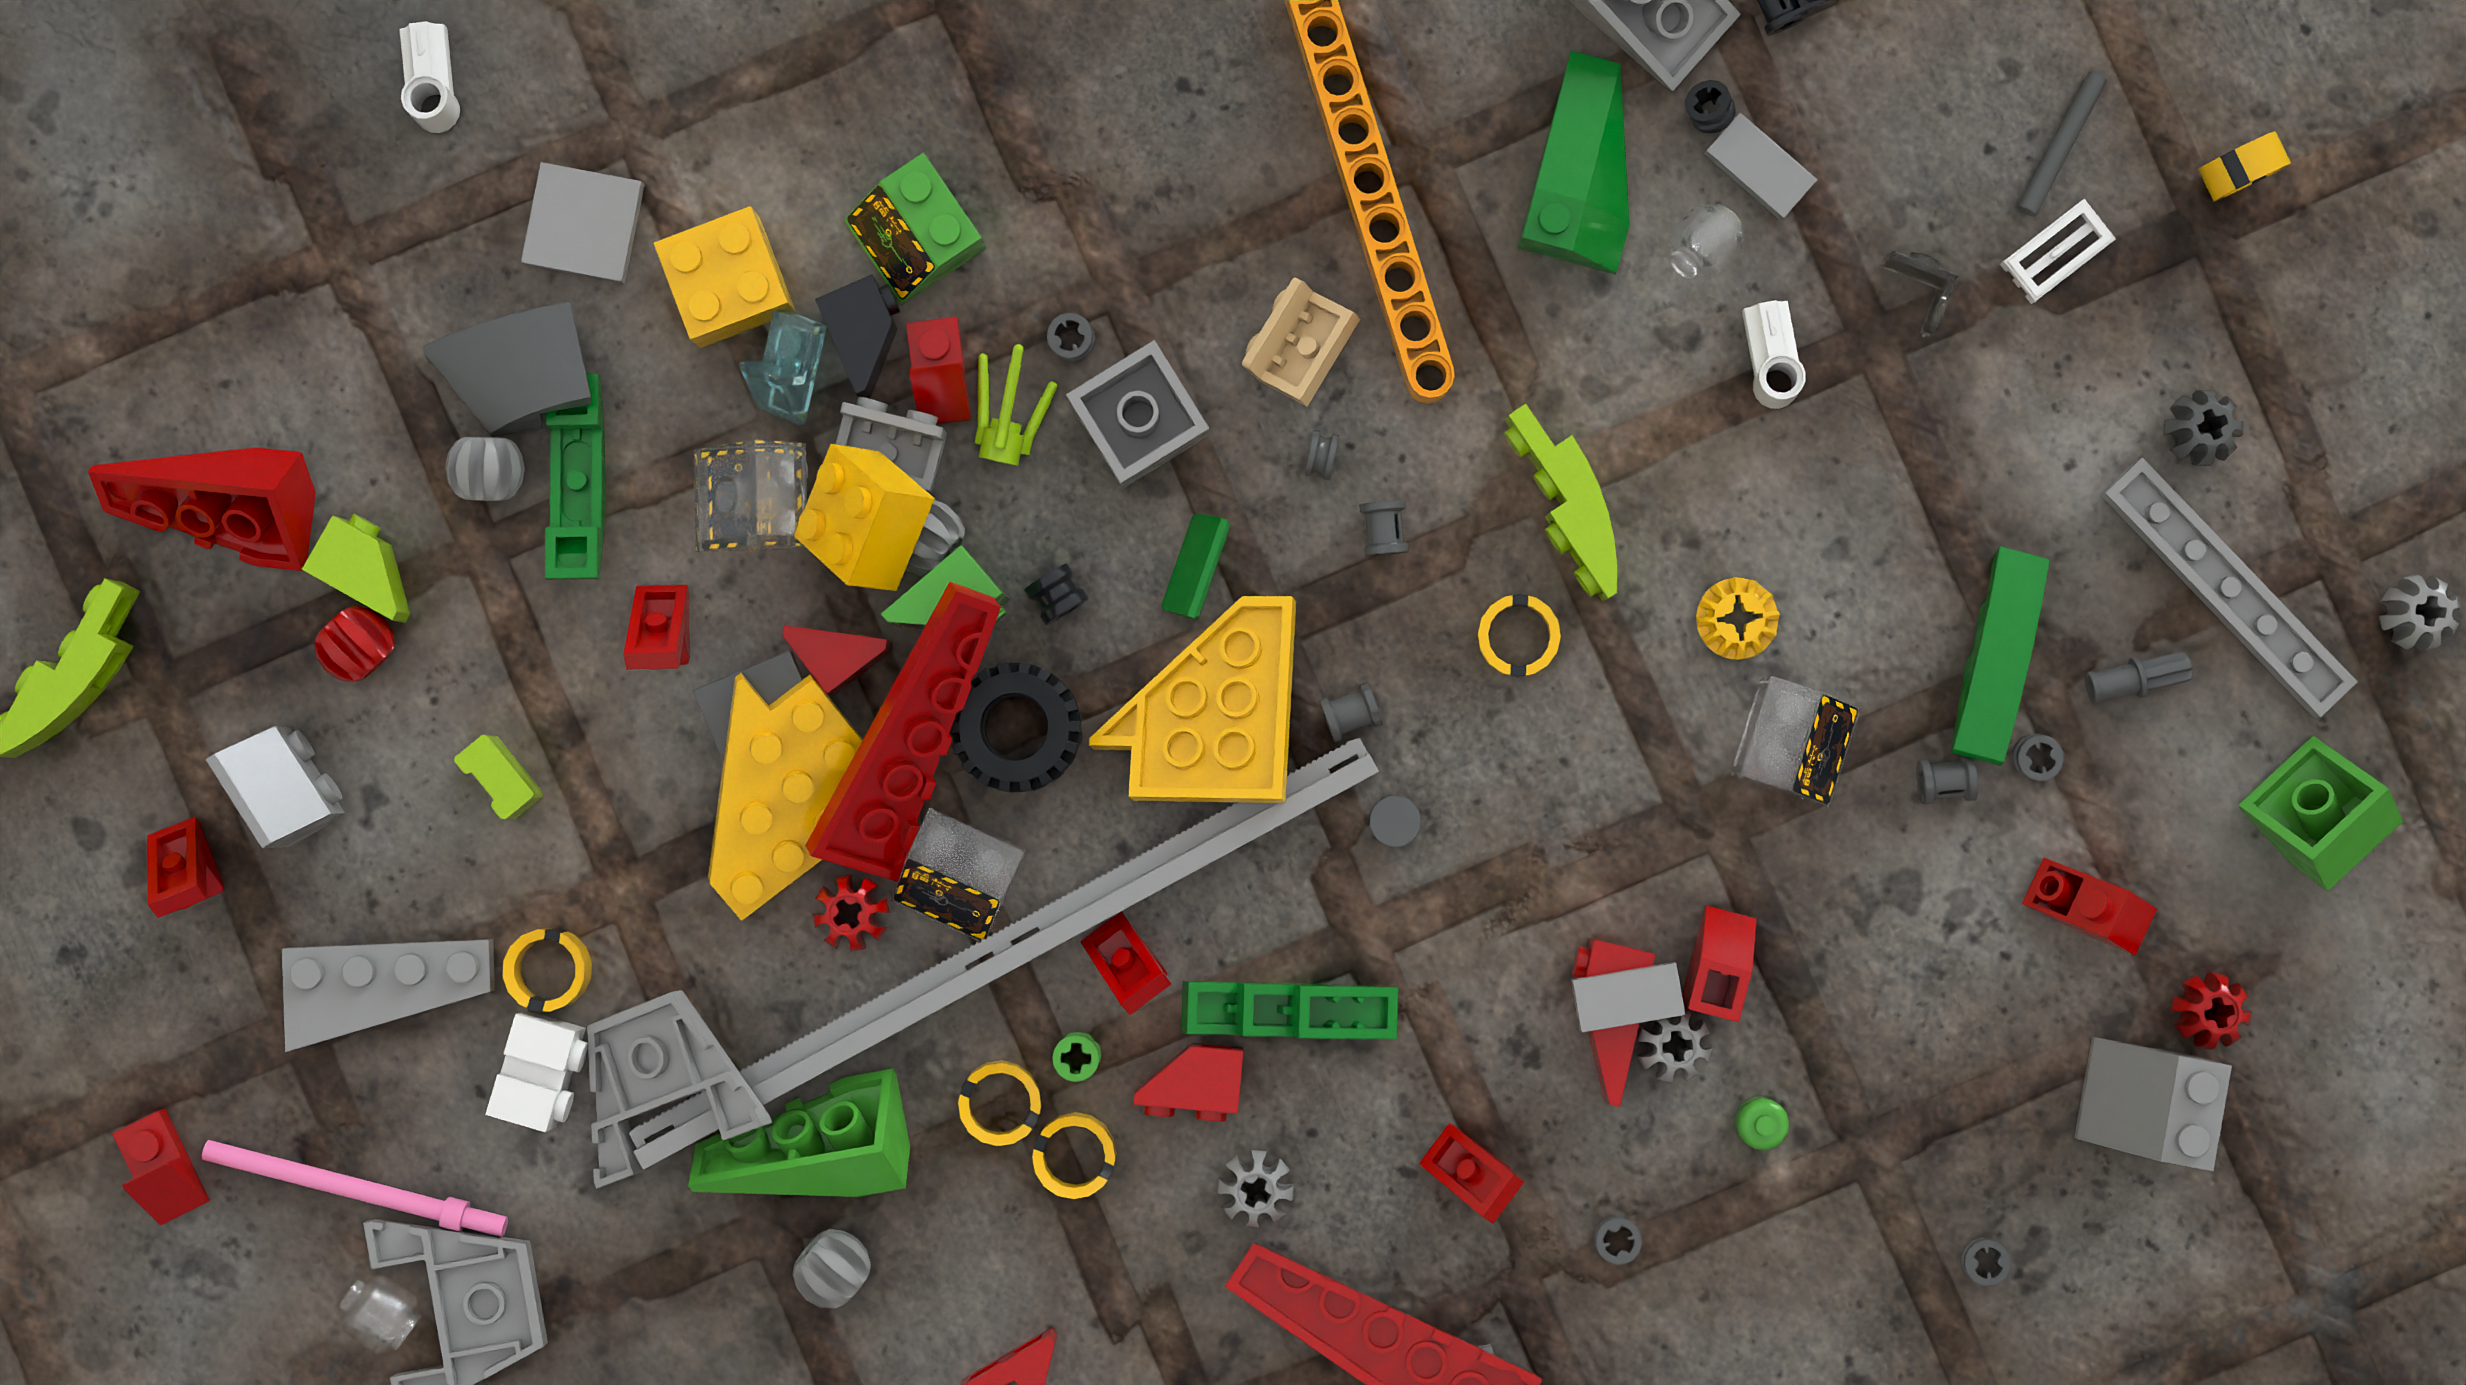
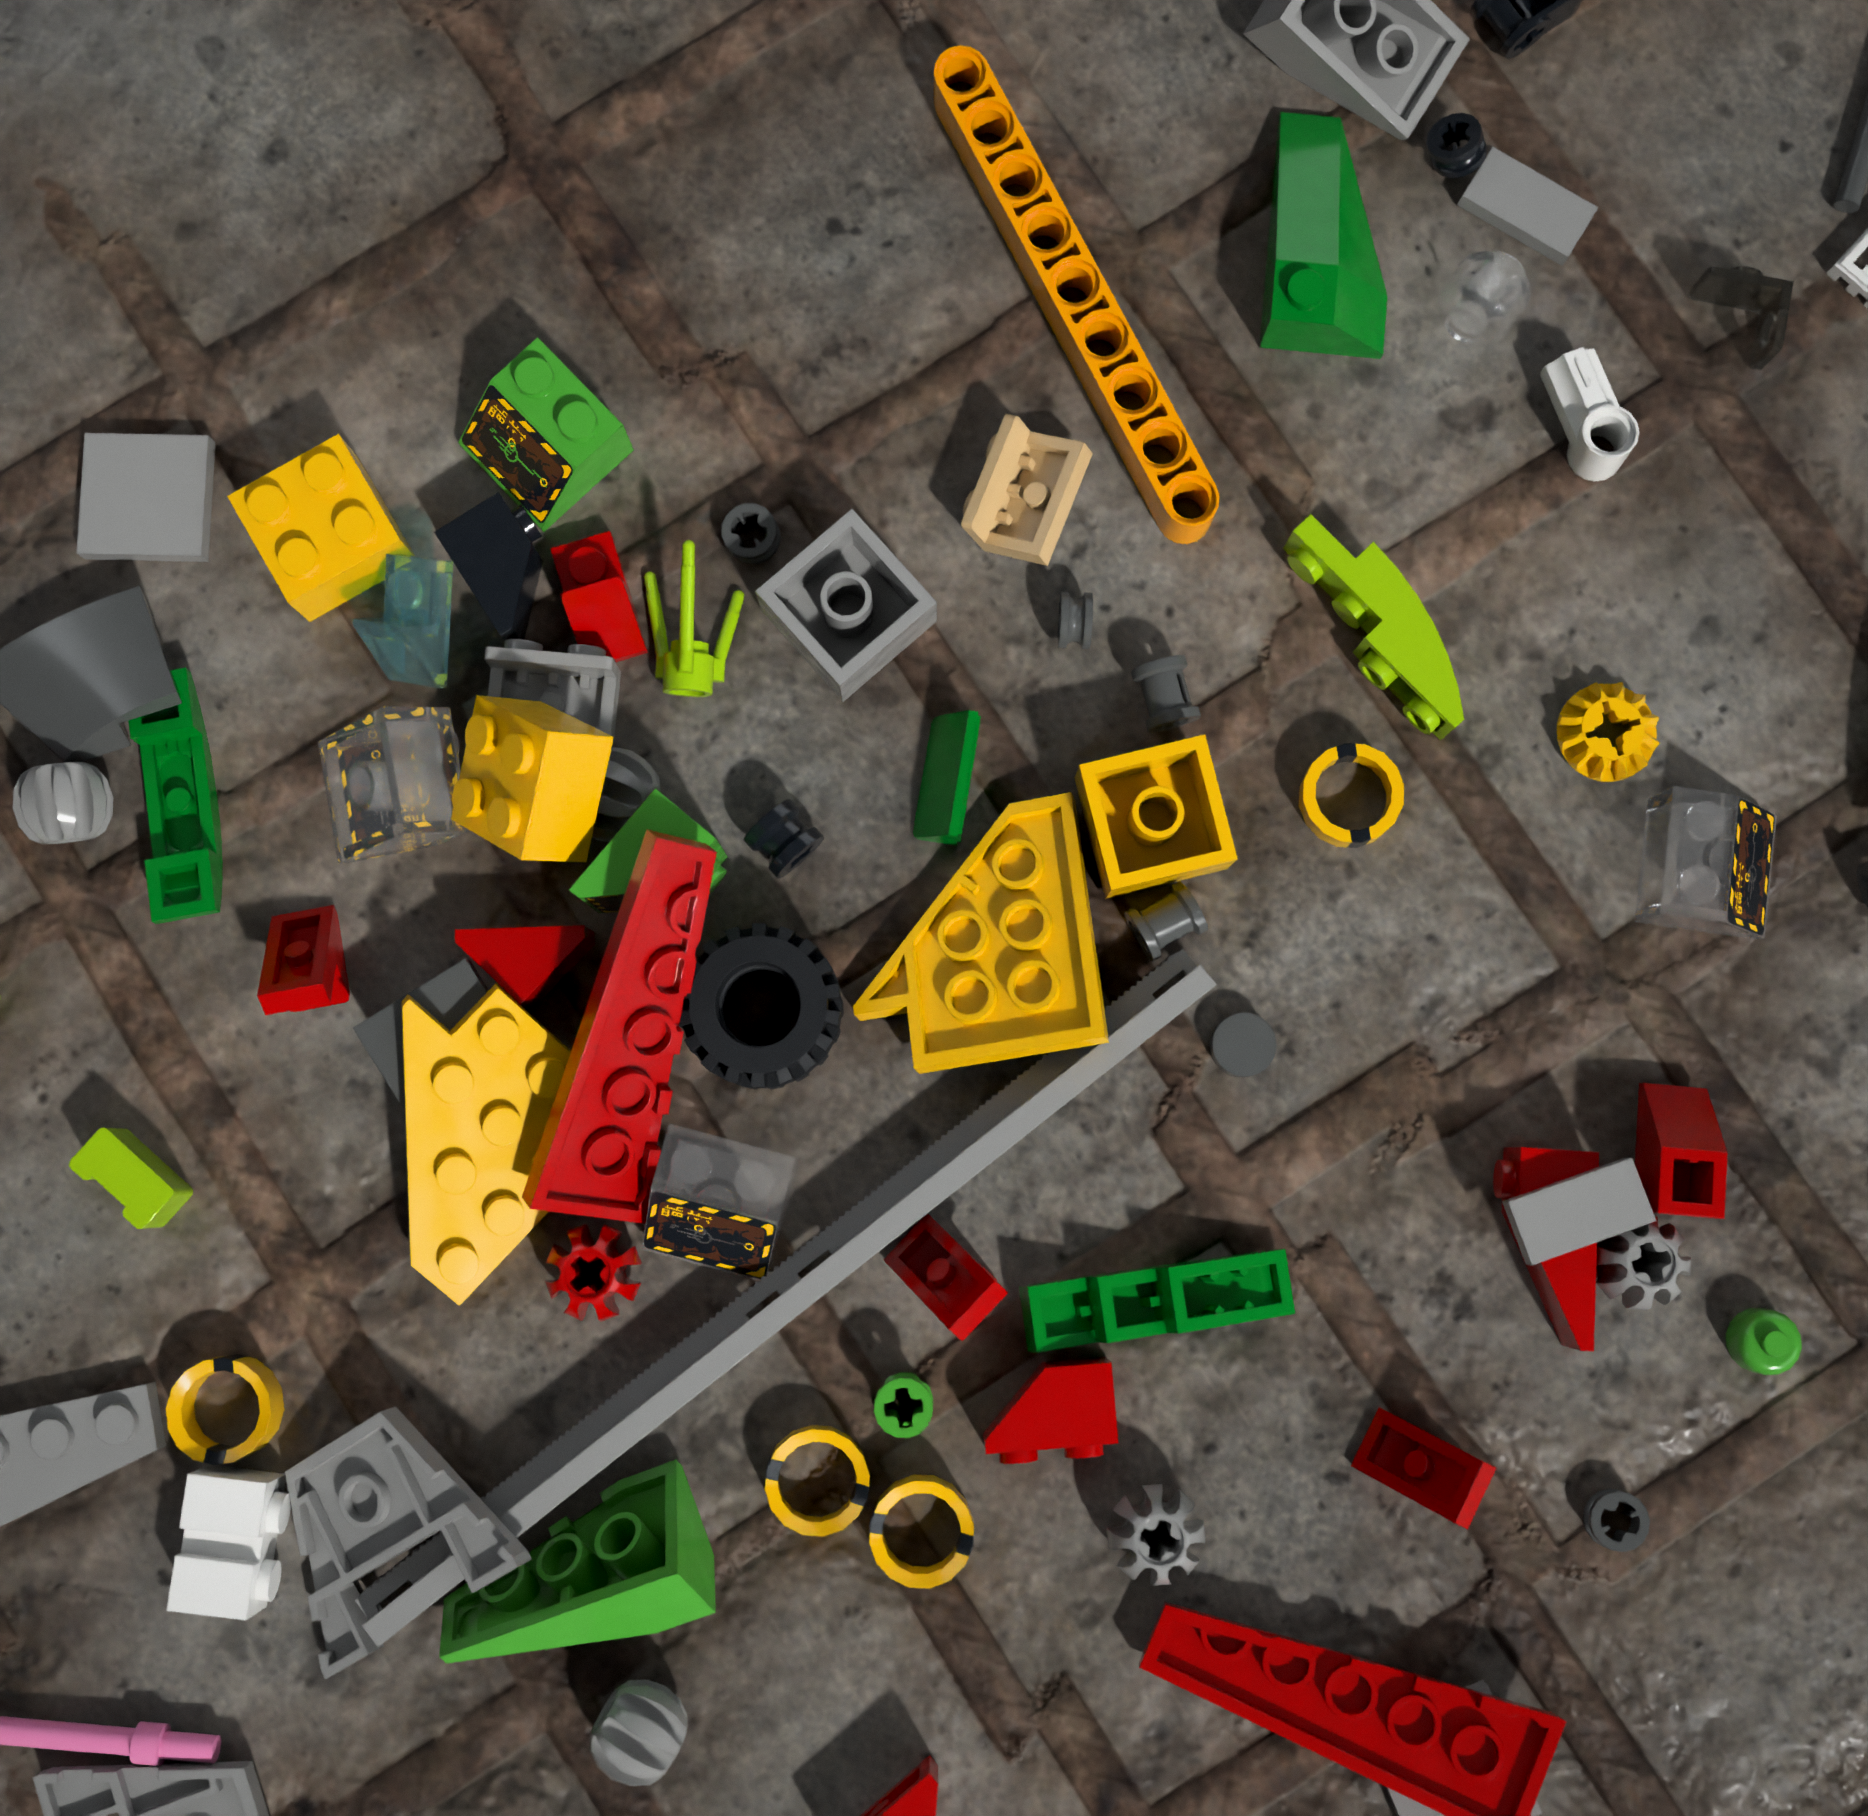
camera: 10 degrees left, 5 degrees down
(1355, 628) = (1155, 816): none -> yellow brick

